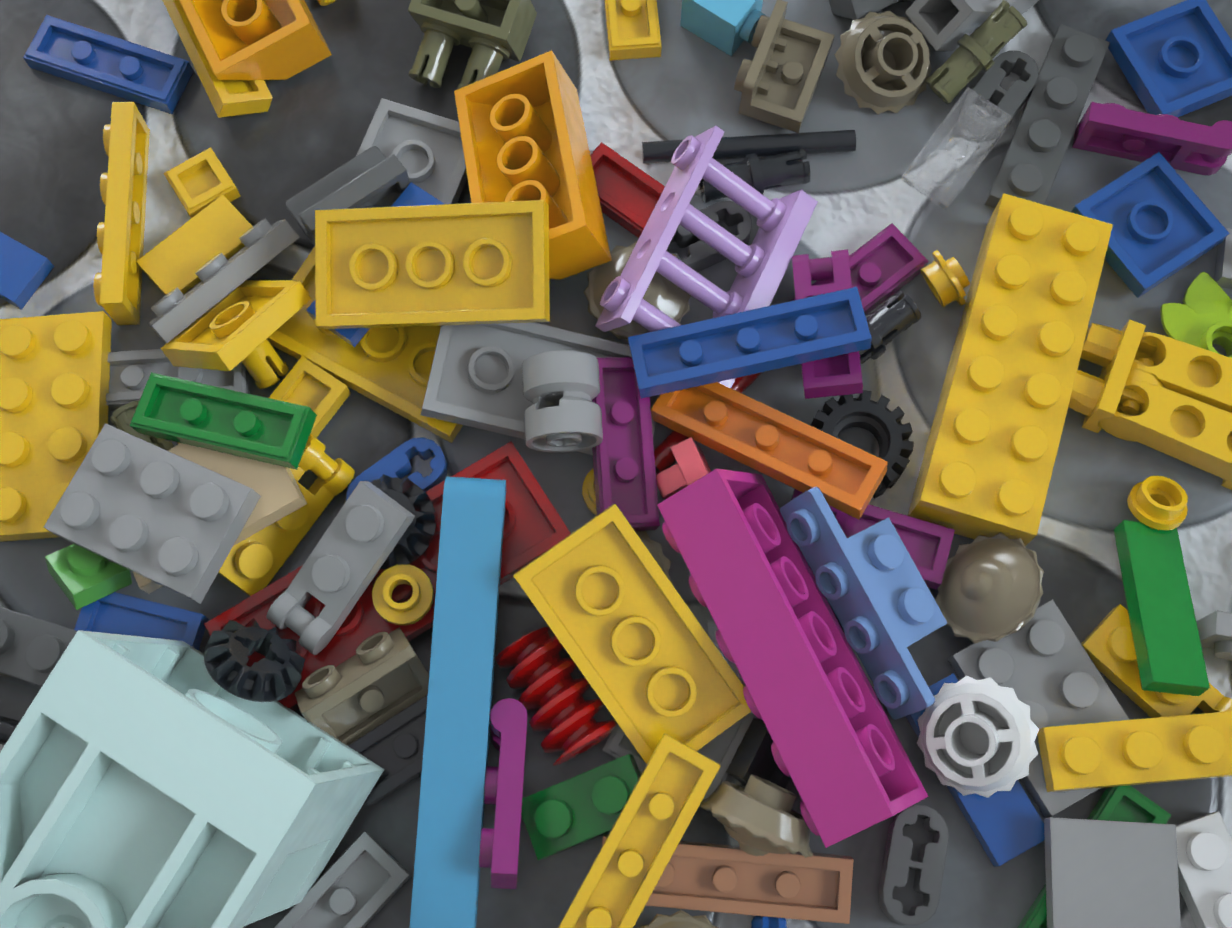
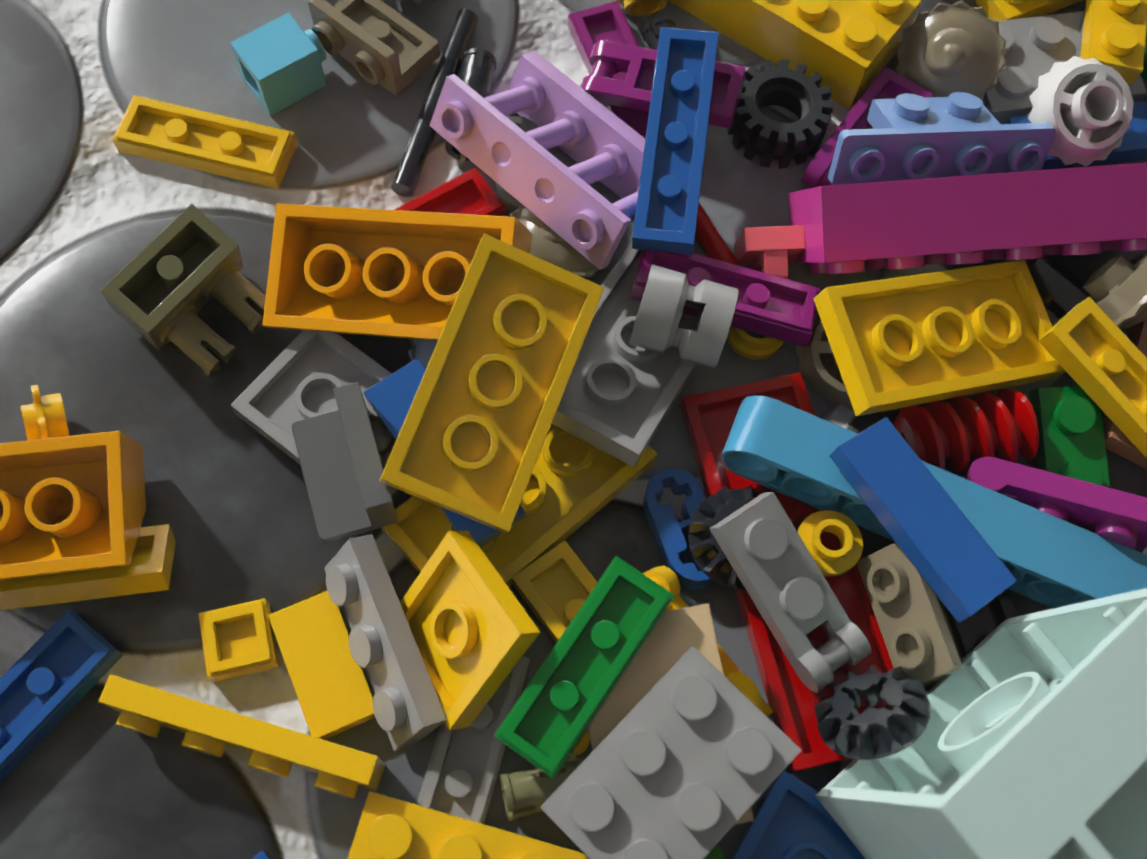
camera: 75 degrees left, 5 degrees down
(426, 651) = (922, 519): none -> blue tile
(773, 444) = (777, 160): orange plate -> none

